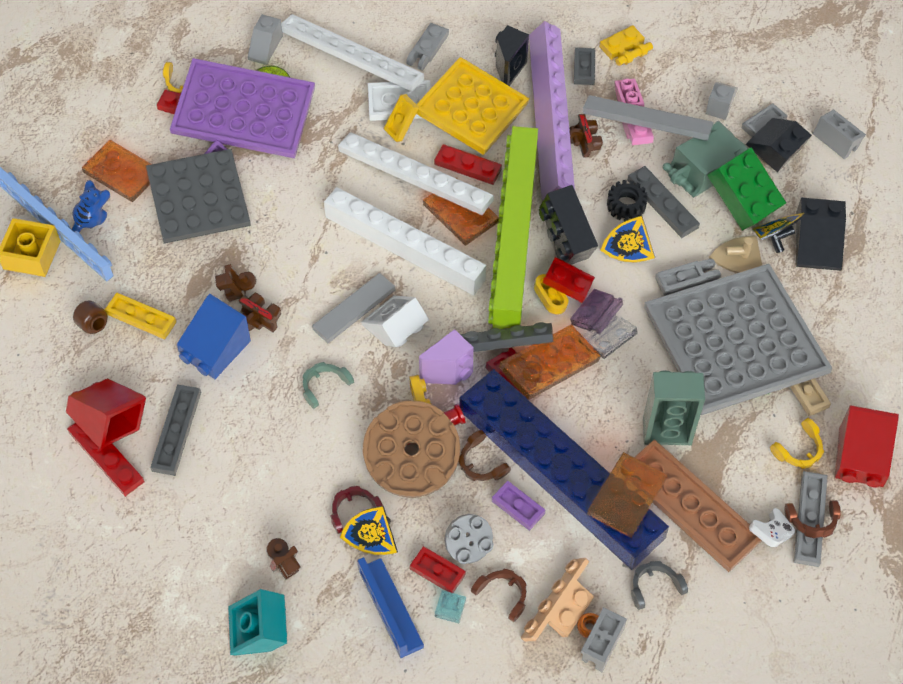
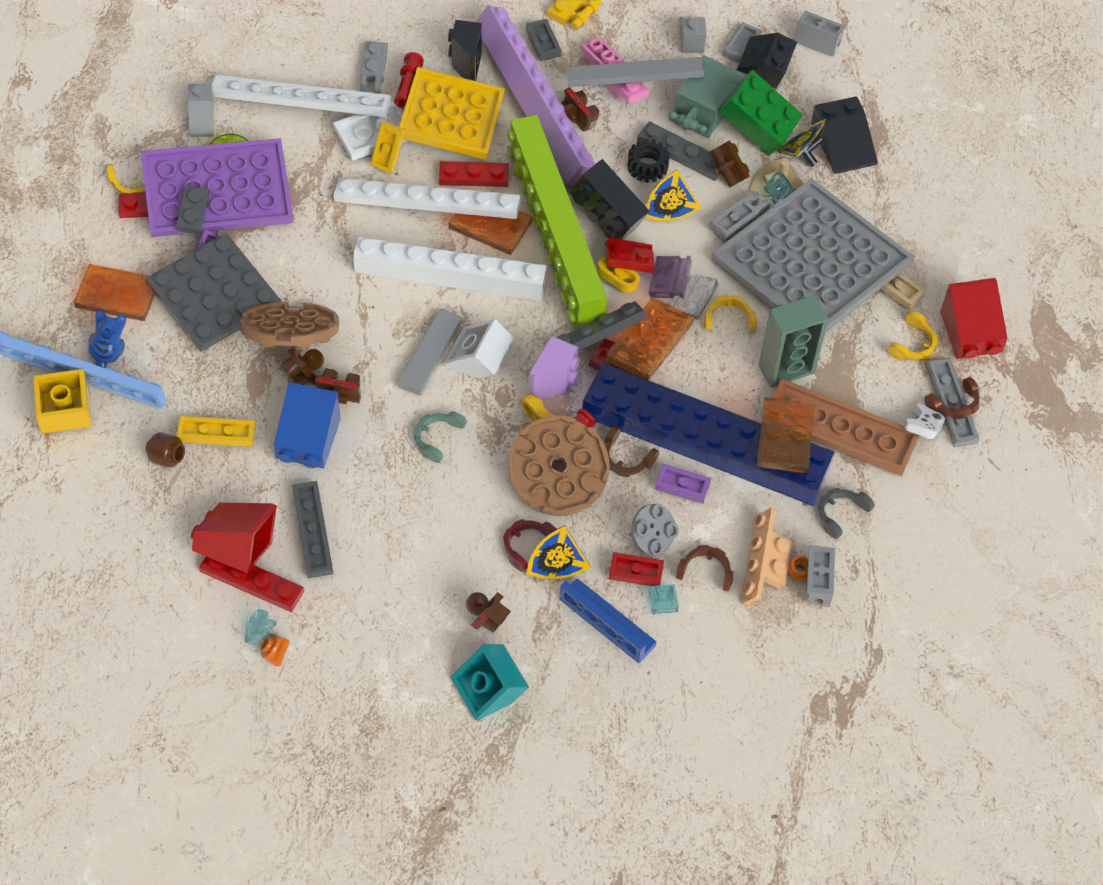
camera: 25 degrees left, 0 degrees up
(86, 500) = (257, 627): none -> clear light blue tile
(92, 524) = (274, 649): none -> orange plate
(212, 120) = (193, 210): none -> dark grey plate
(240, 244) = (289, 325): none -> medium nougat plate
(460, 50) = (411, 62): none -> red pin
(634, 349) = (729, 301): none -> yellow piece
(698, 226) = (729, 163): none -> reddish brown hips
(734, 262) = (778, 187): none -> clear light blue tile

